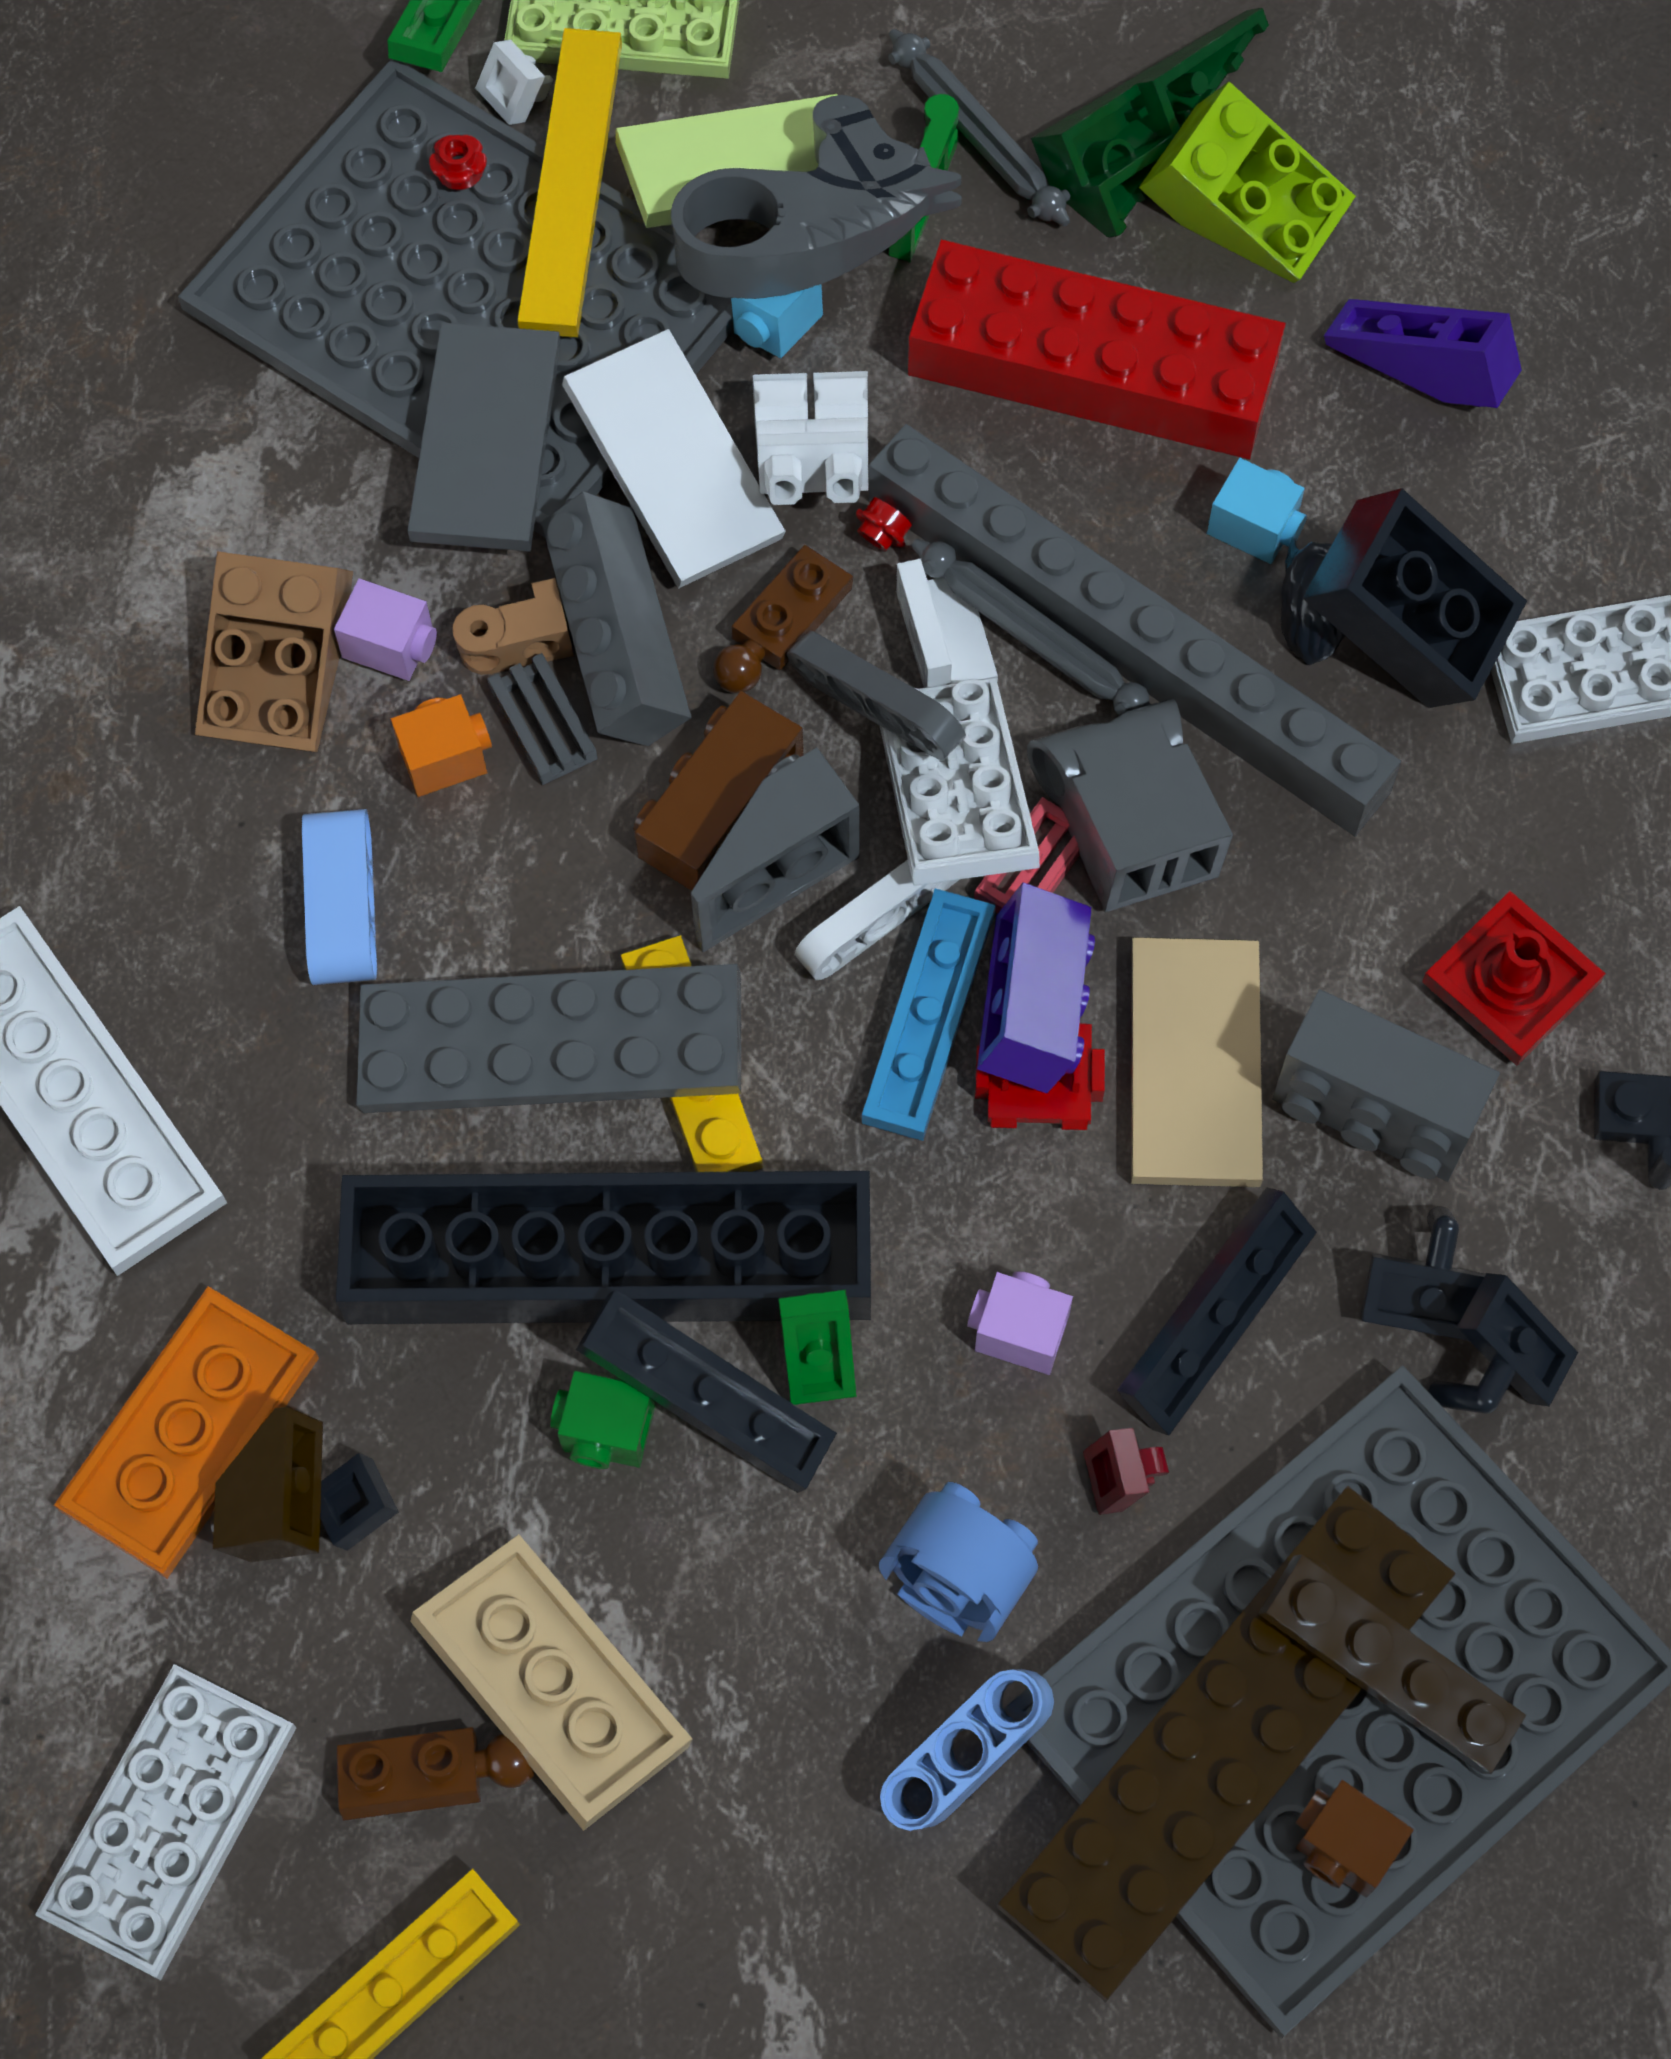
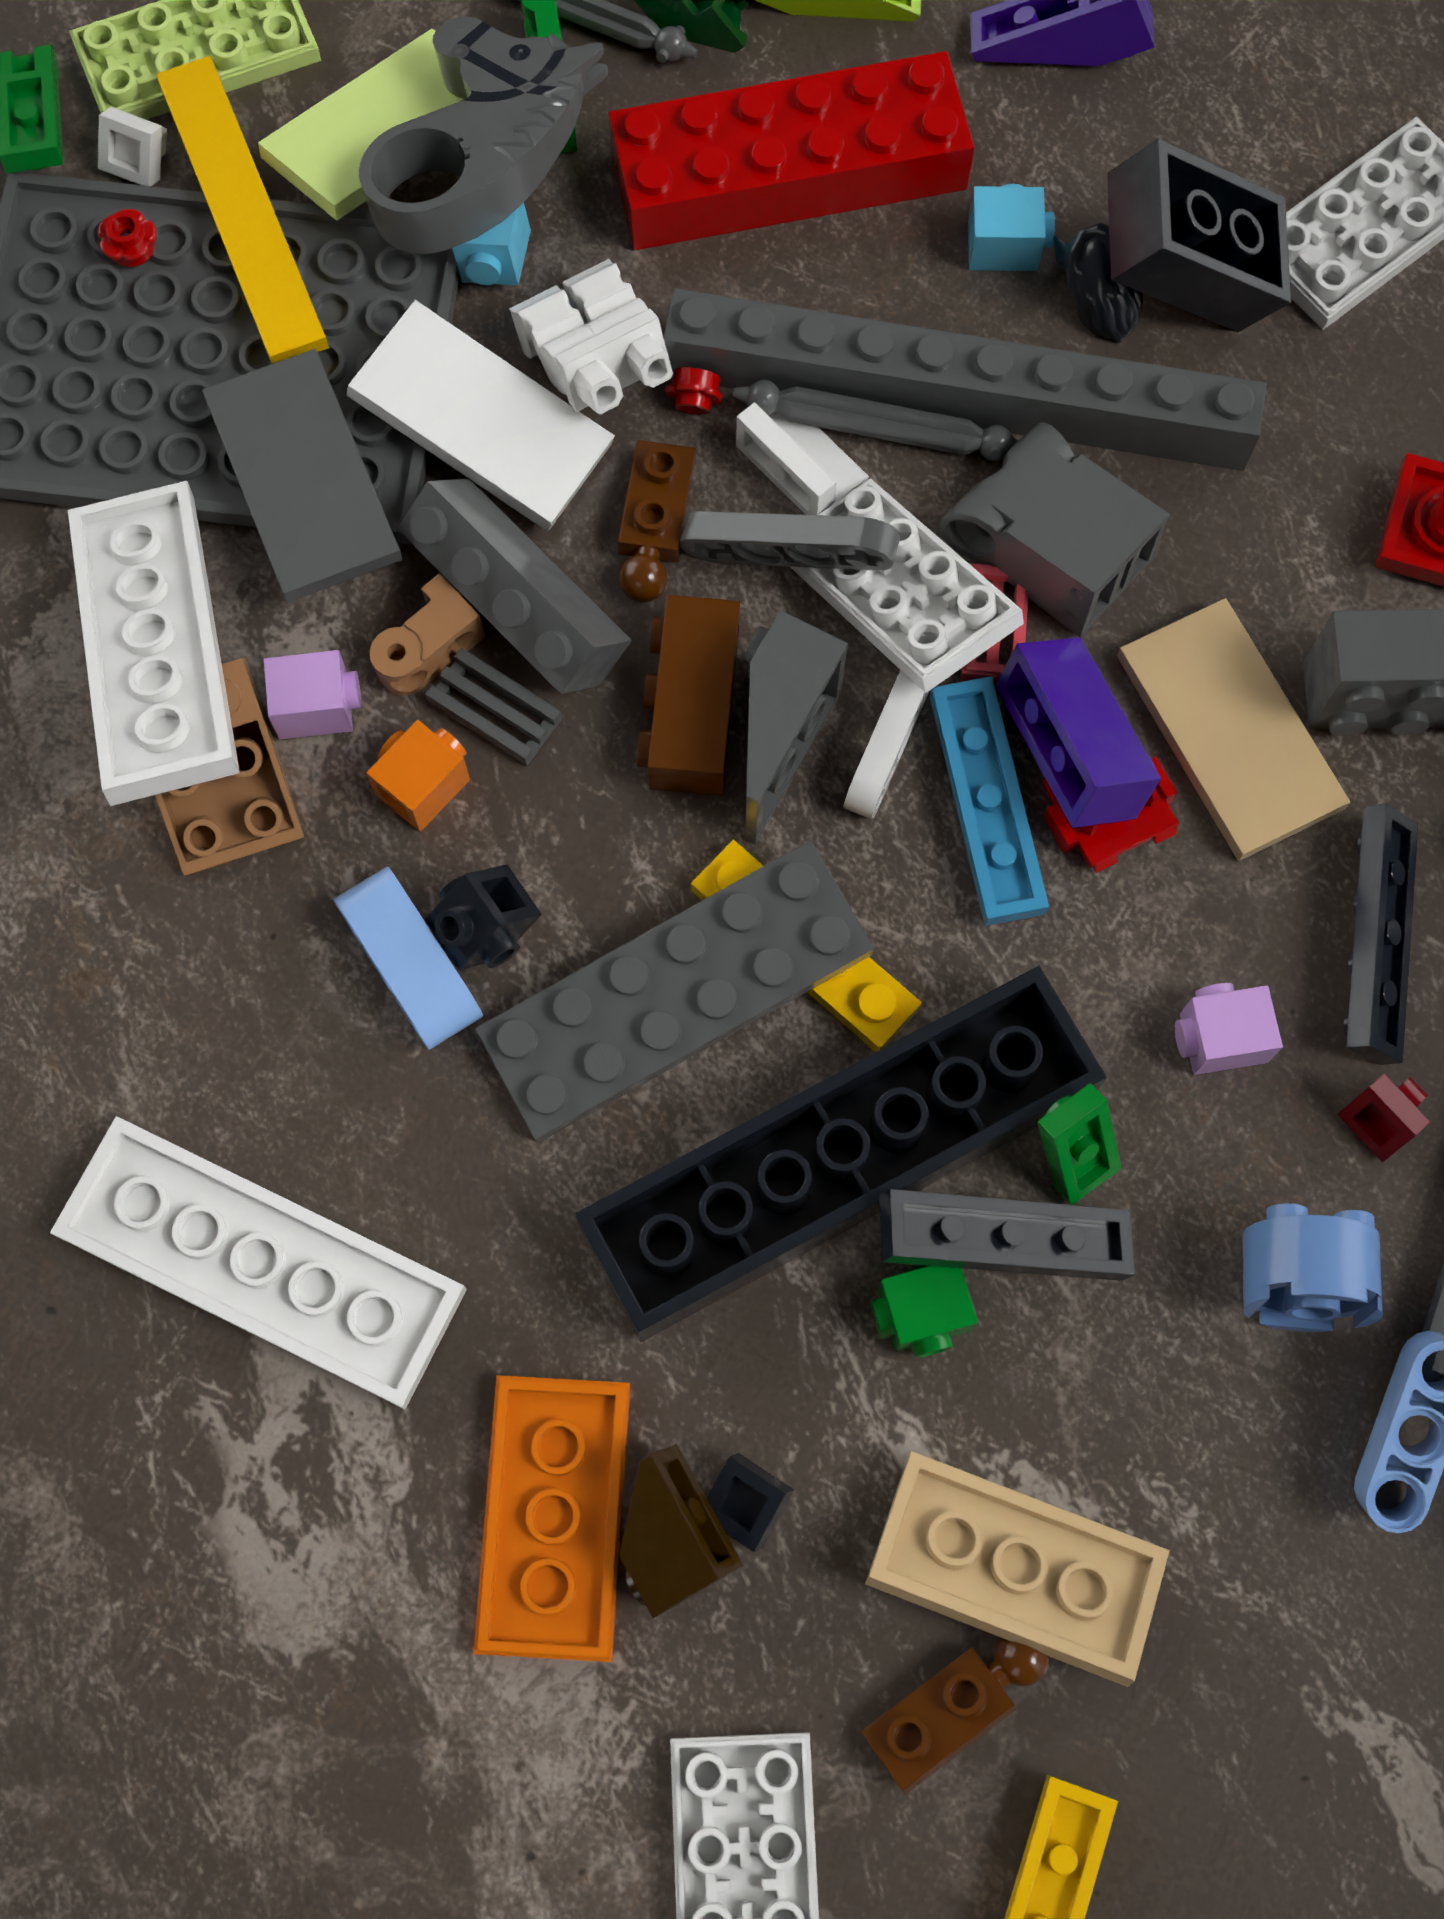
camera: 30 degrees left, 5 degrees up
(266, 517) = (150, 644): none -> white plate
(419, 892) = (482, 917): none -> black brick

